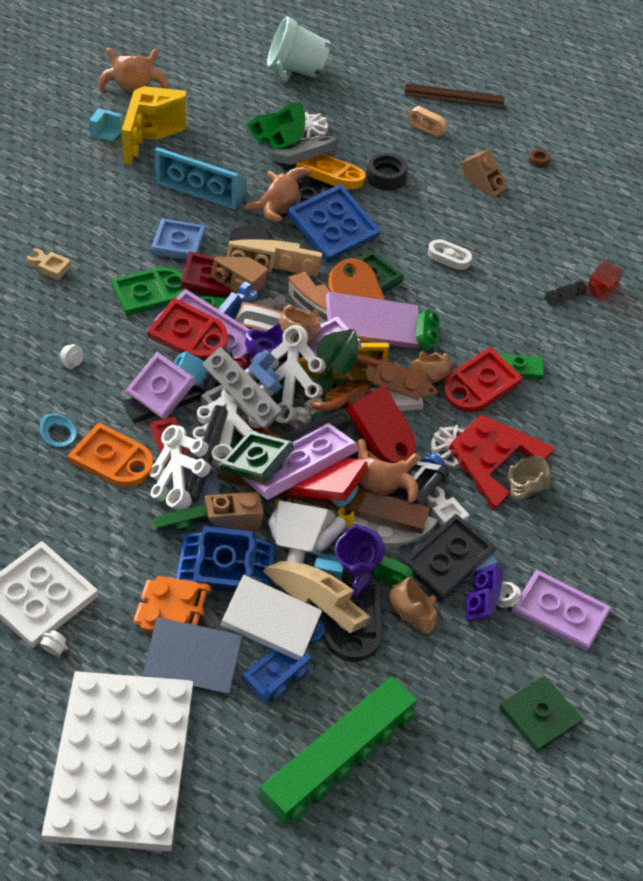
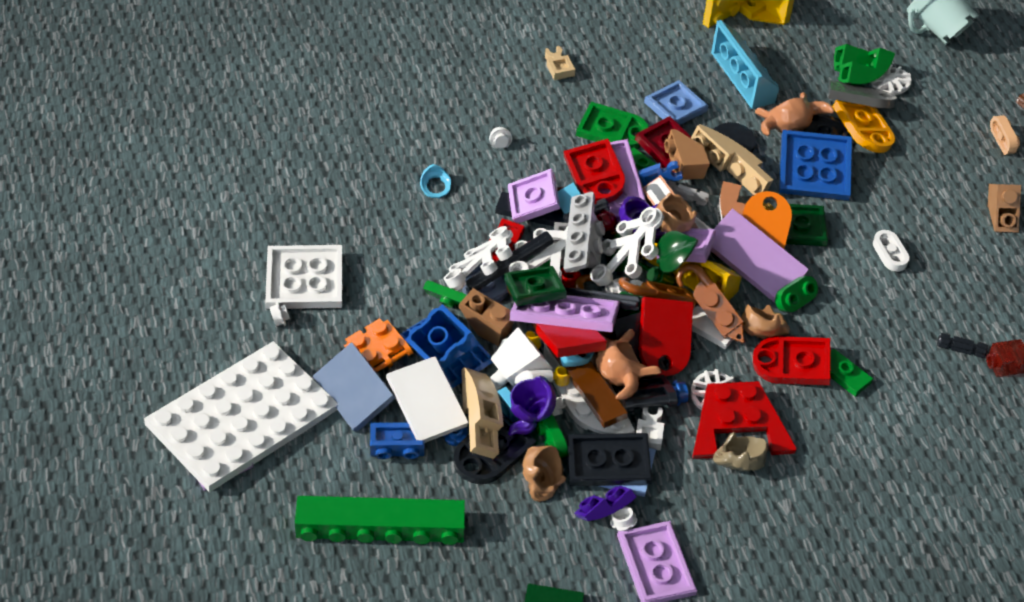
camera: 45 degrees right, 0 degrees up
(112, 456) = (453, 222): orange tile -> none
(263, 372) = (606, 232): medium blue bracket -> none
(385, 181) = (911, 164): black tyre -> none

